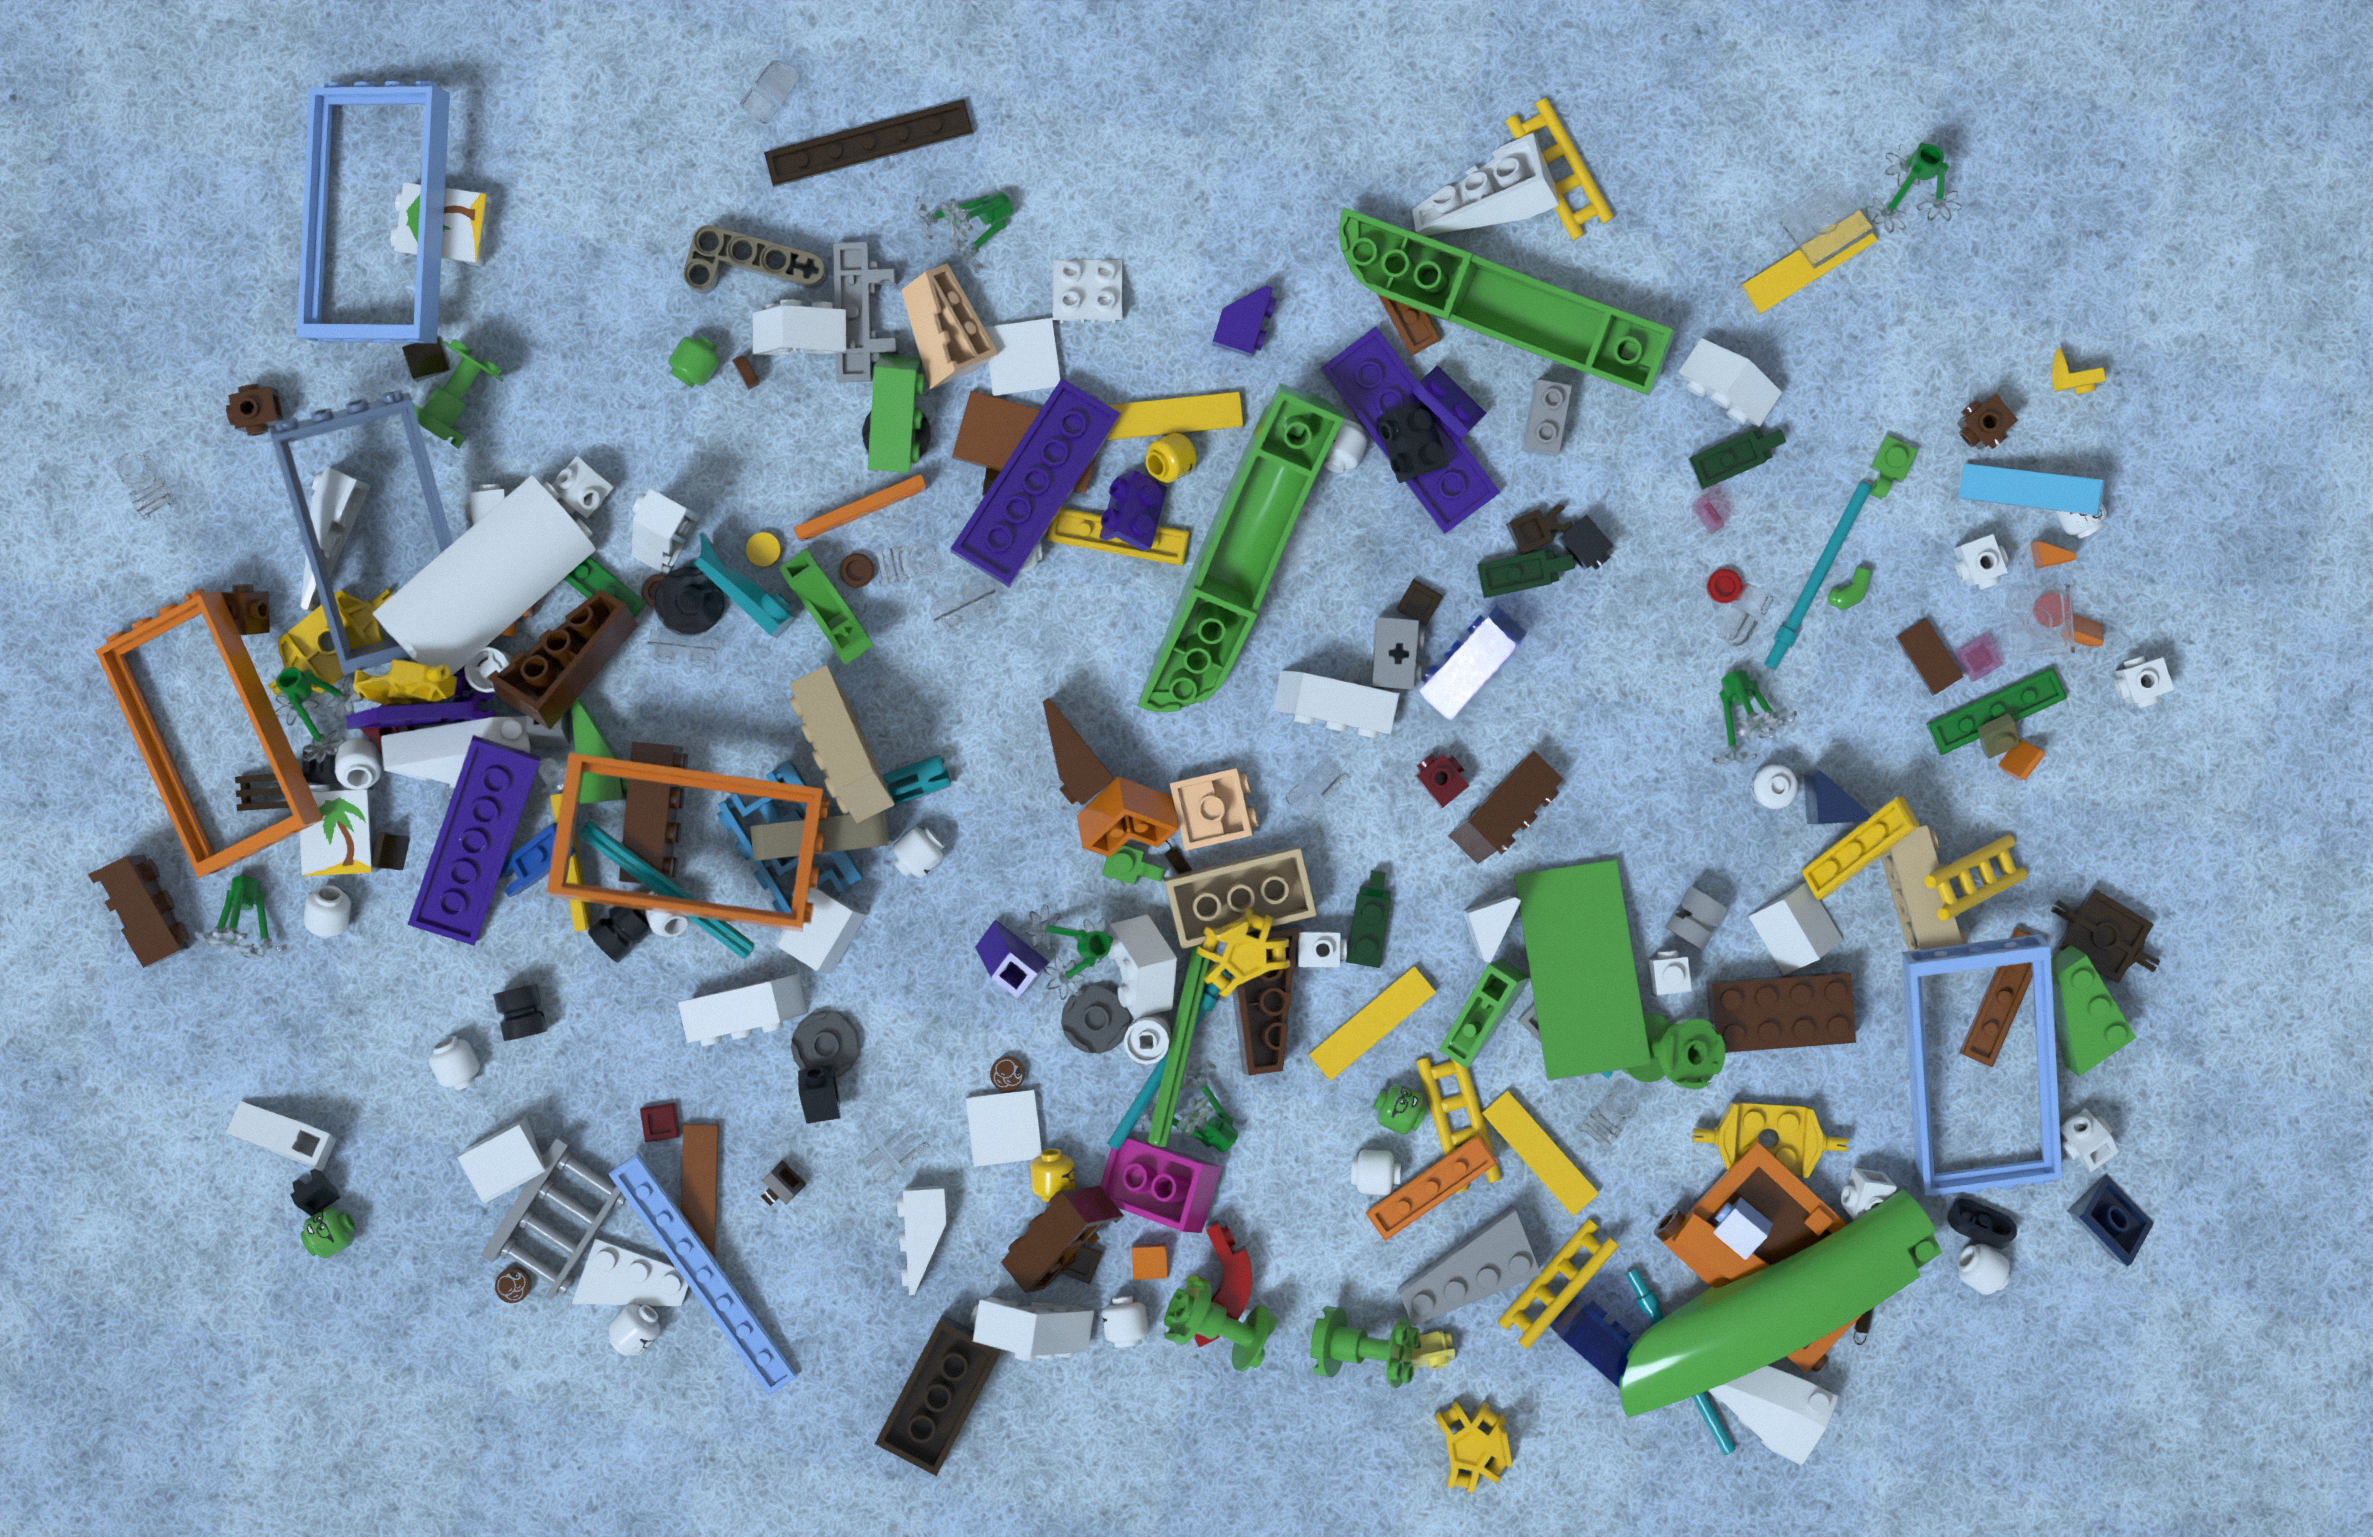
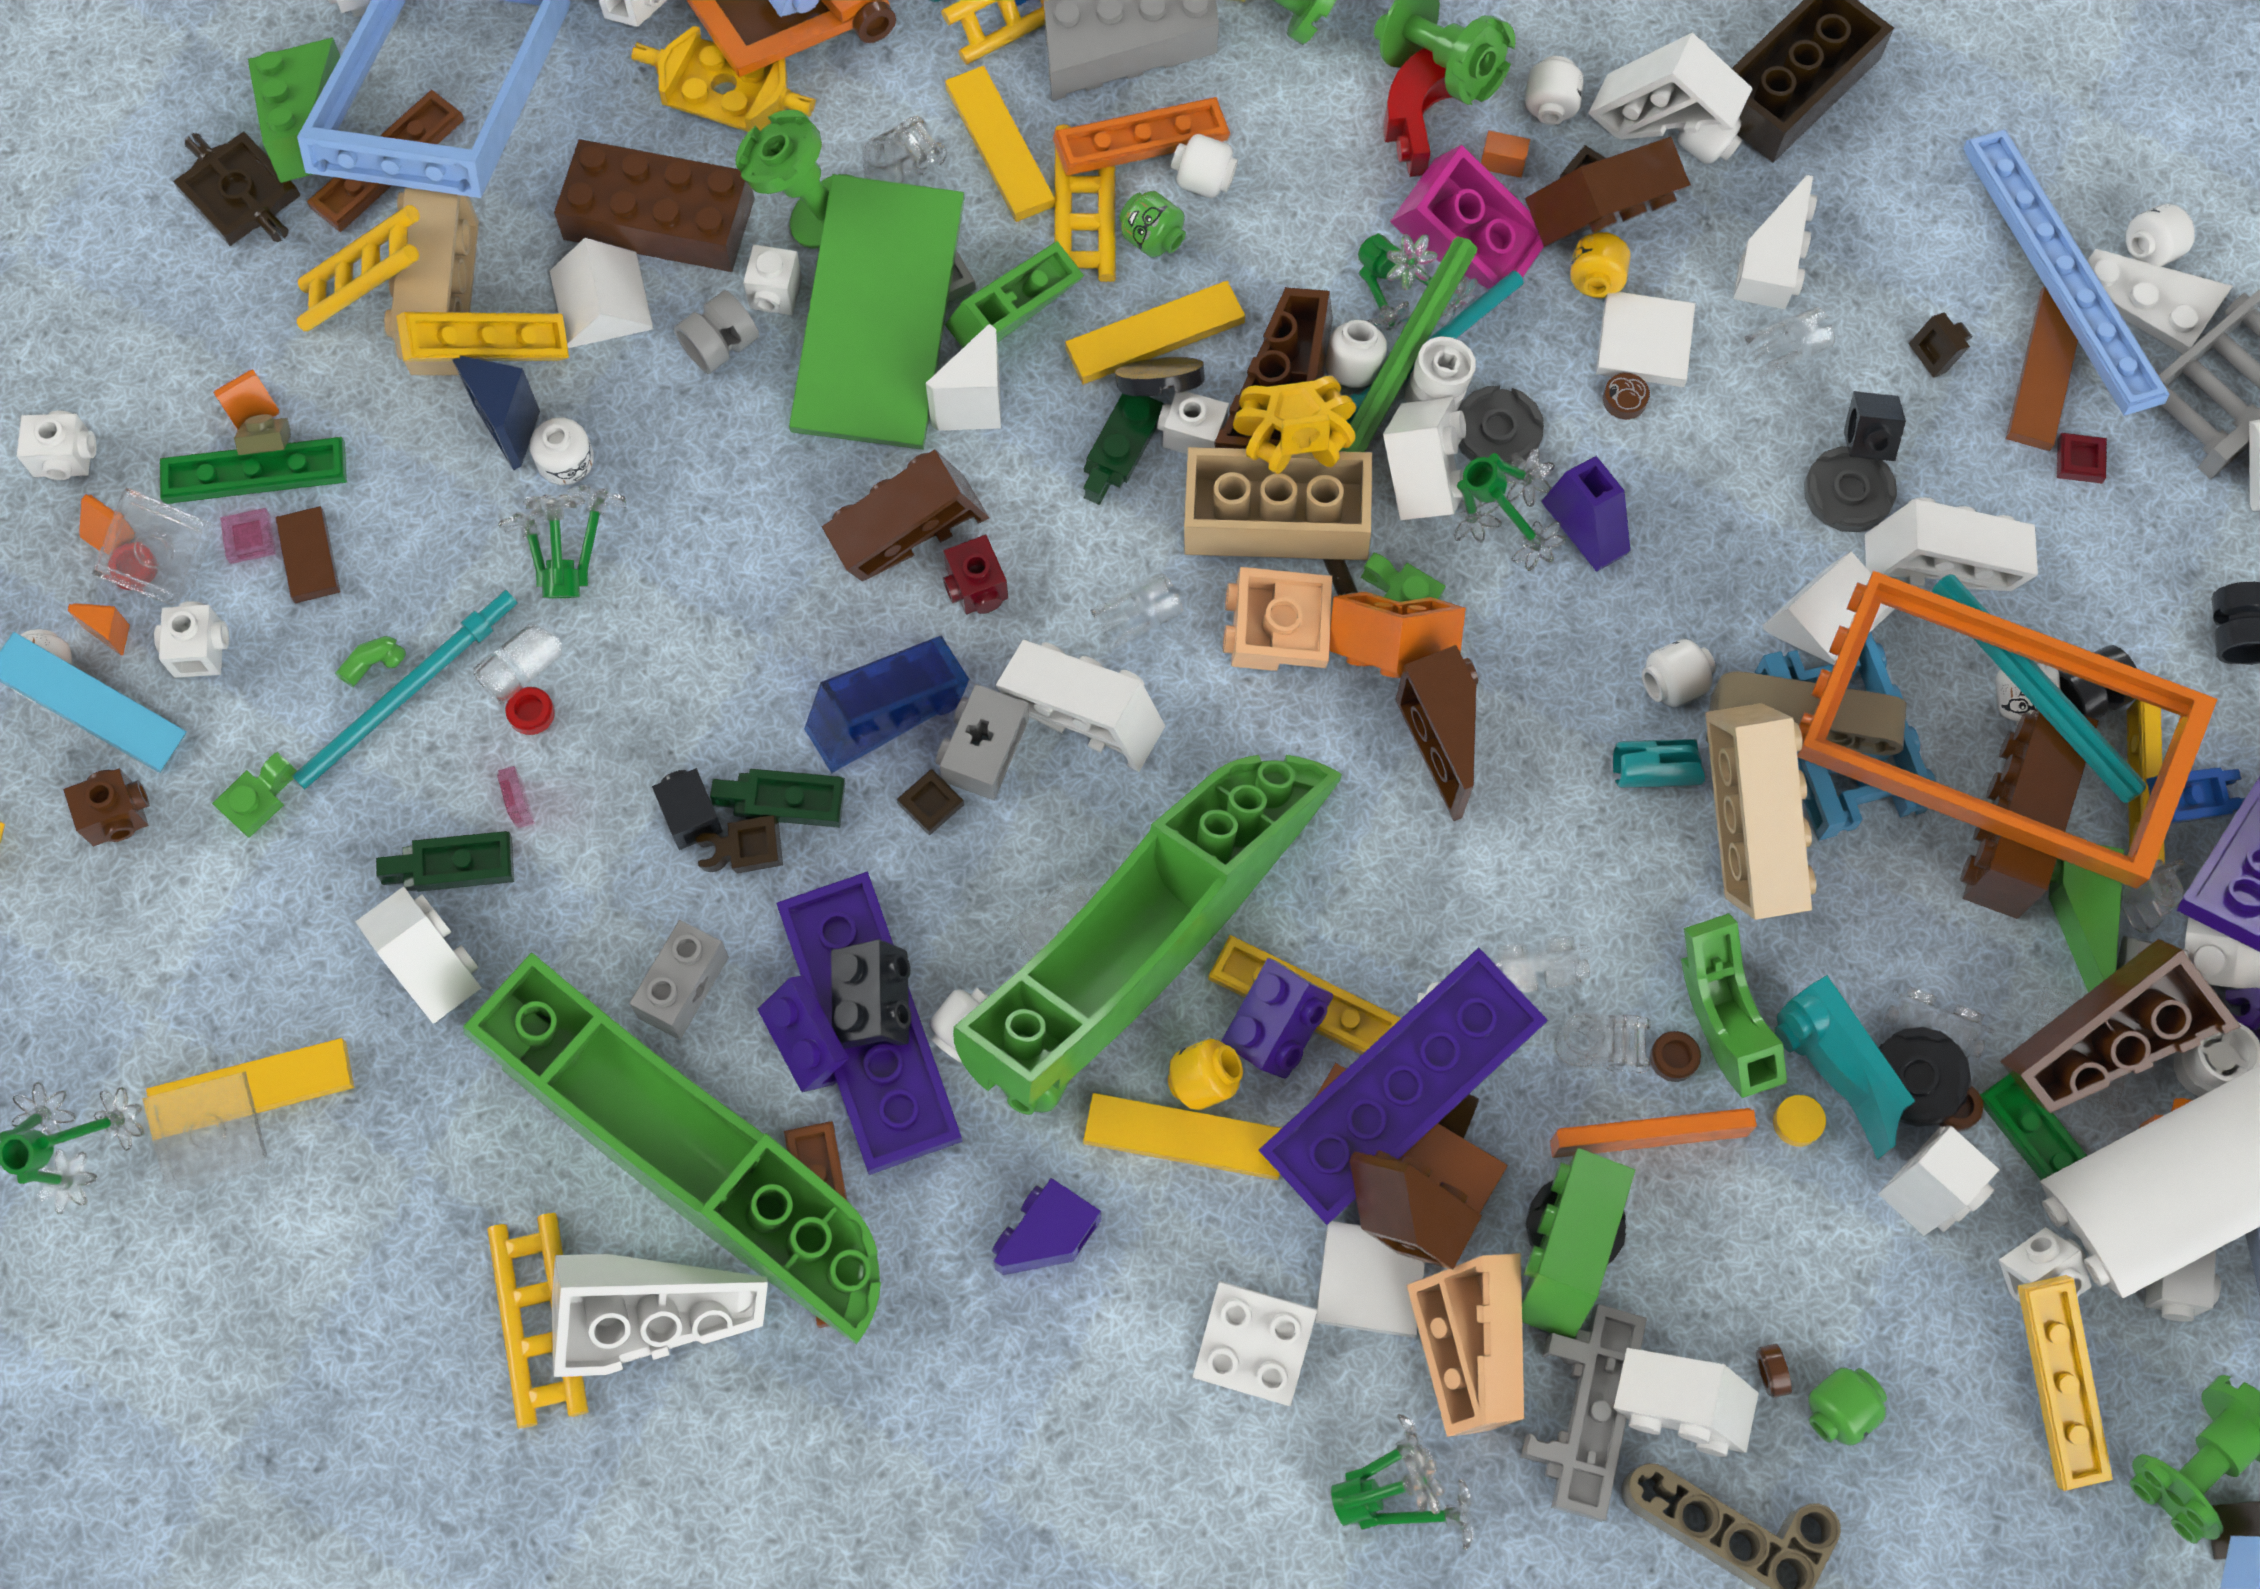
camera: 165 degrees left, 20 degrees down
(557, 415) = (2065, 1382): none -> yellow tile
(1007, 394) = (1410, 1210): none -> reddish brown slope
(1216, 1039) = (1355, 353): none -> white head
(1356, 977) = (1155, 374): none -> black tile

